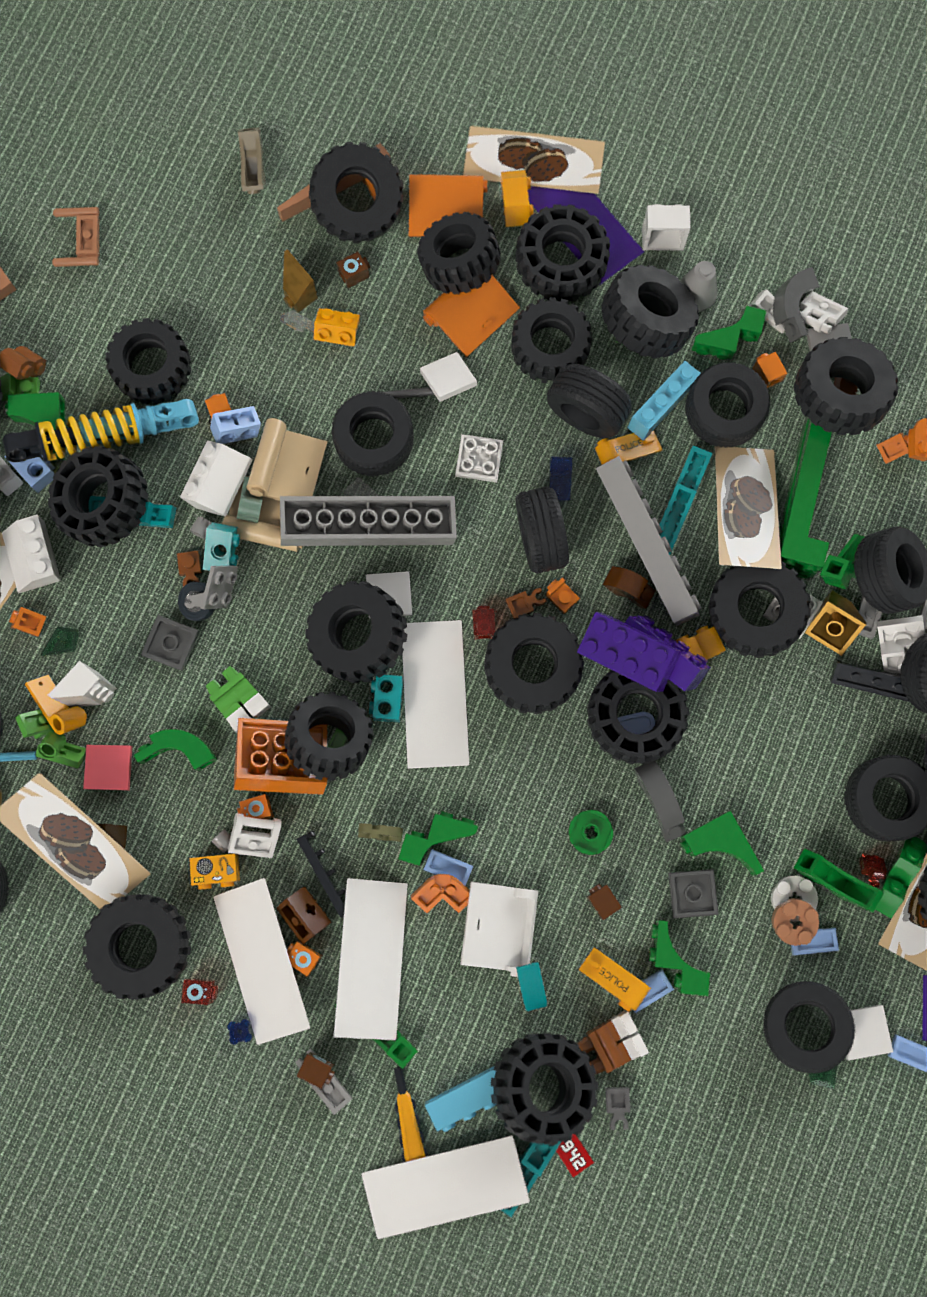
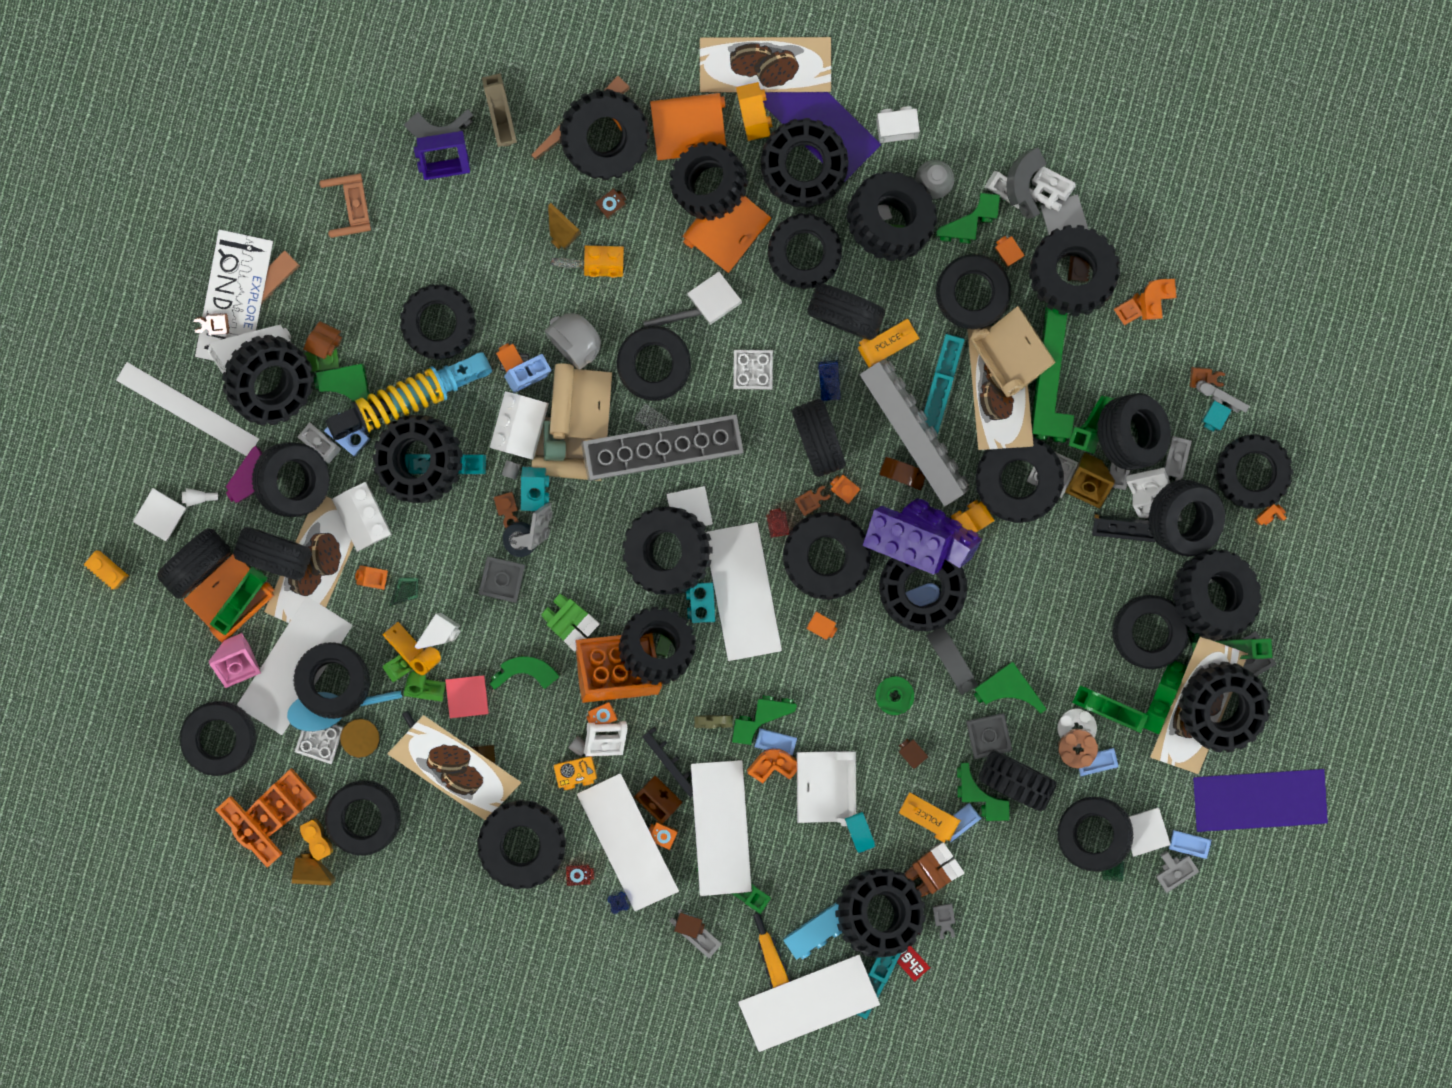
camera: 10 degrees left, 10 degrees up
(185, 180) = (421, 128): none -> dark grey arch
(203, 213) = (446, 167): none -> dark purple window
(291, 396) = (574, 339): none -> light grey piece
(518, 742) = (822, 626): none -> orange brick
(663, 400) = (915, 295): medium azure brick -> none
(725, 949) = (1017, 780): none -> black tyre
(762, 471) = (1010, 354): none -> tan door
(874, 868) = (1141, 693): clear red plate -> none
(895, 1085) = (1175, 871): none -> light grey hinge

